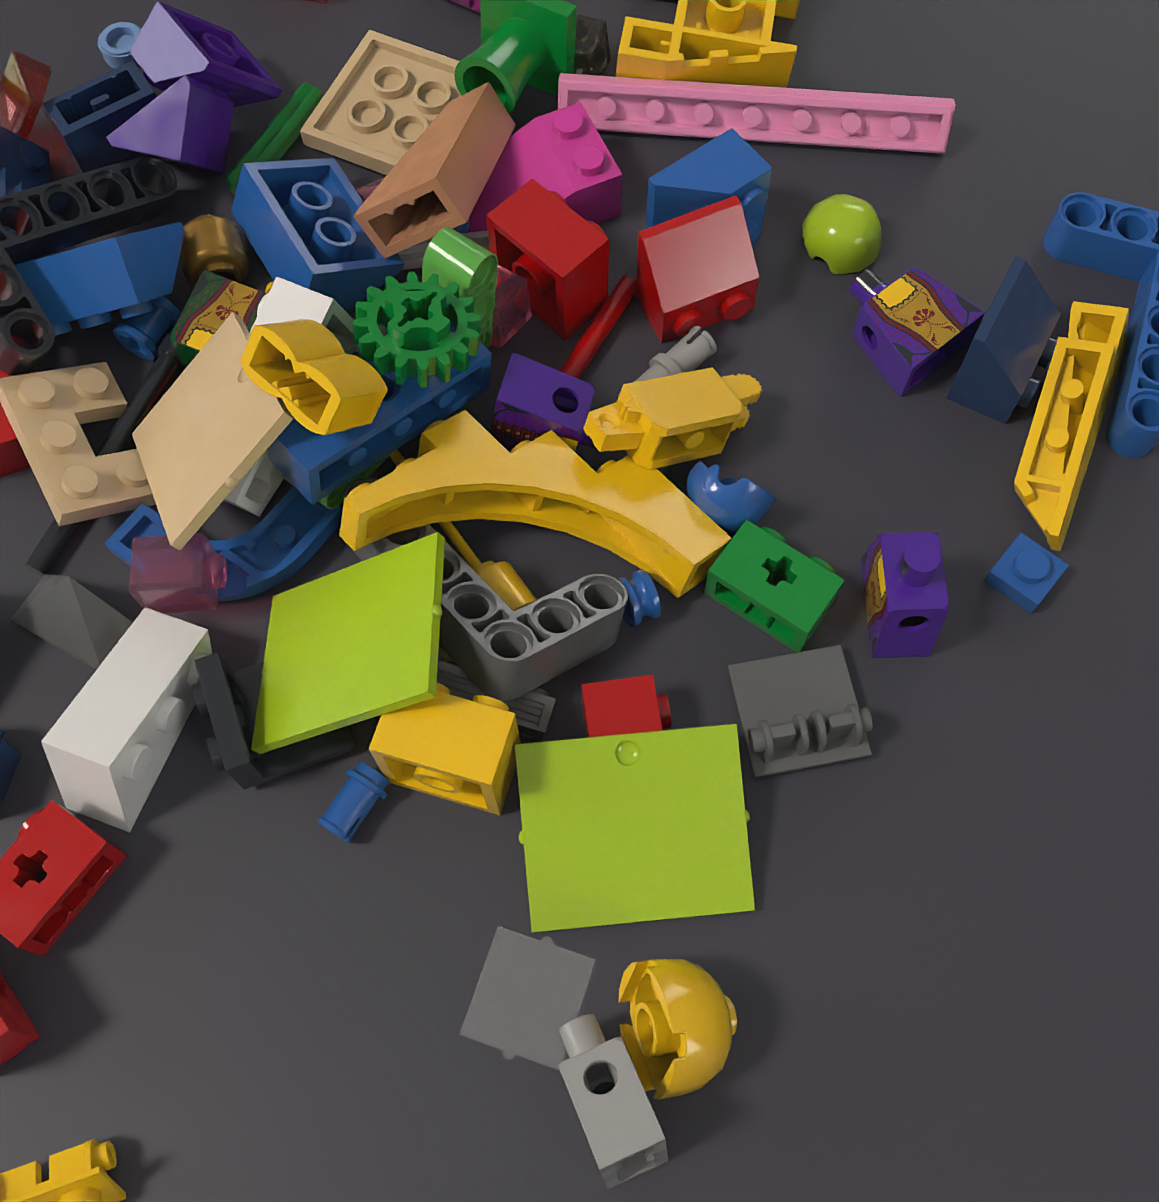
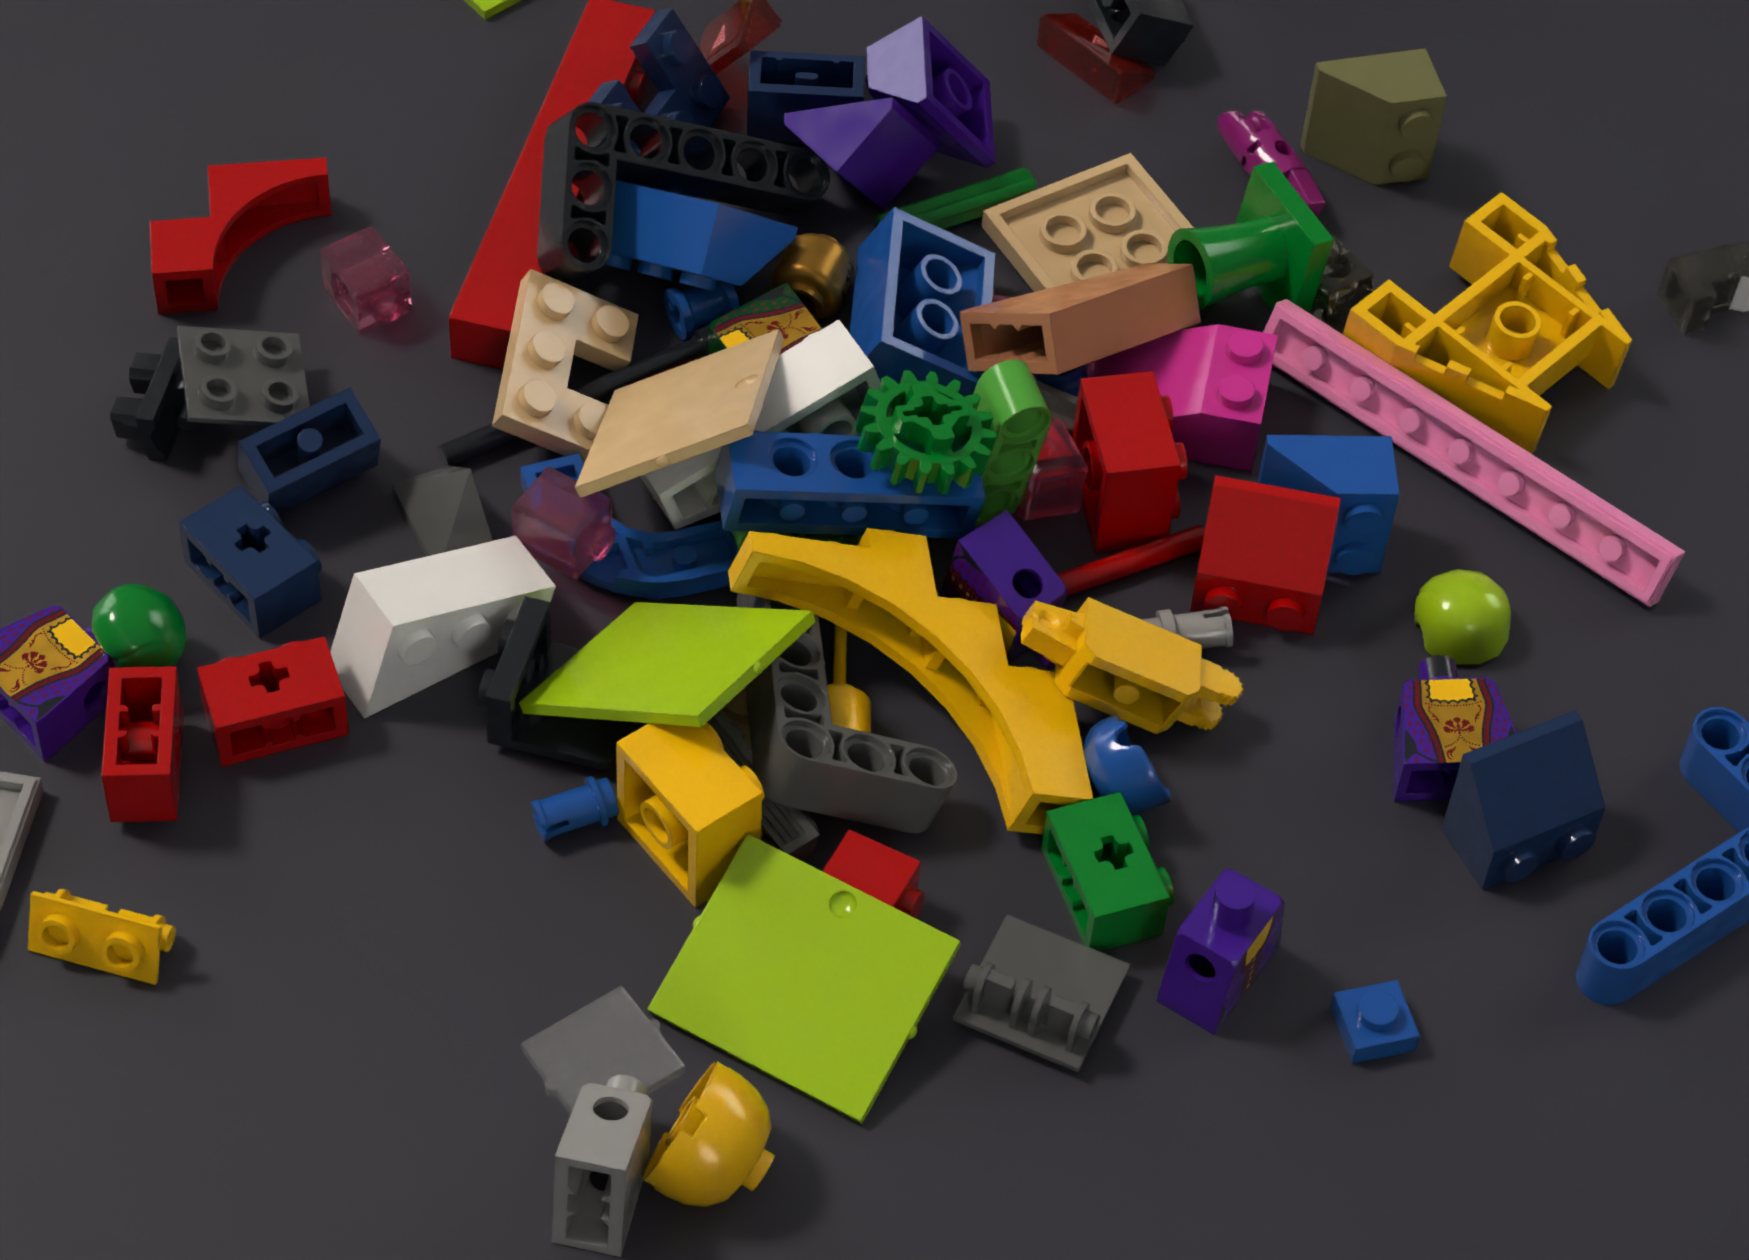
camera: 30 degrees right, 15 degrees down
(117, 42) = (872, 27): medium blue tile -> none
(313, 375) = (797, 411): yellow brick -> none
(642, 598) = (966, 803): blue bush -> none
(1070, 415) = (1540, 914): yellow wedge -> none

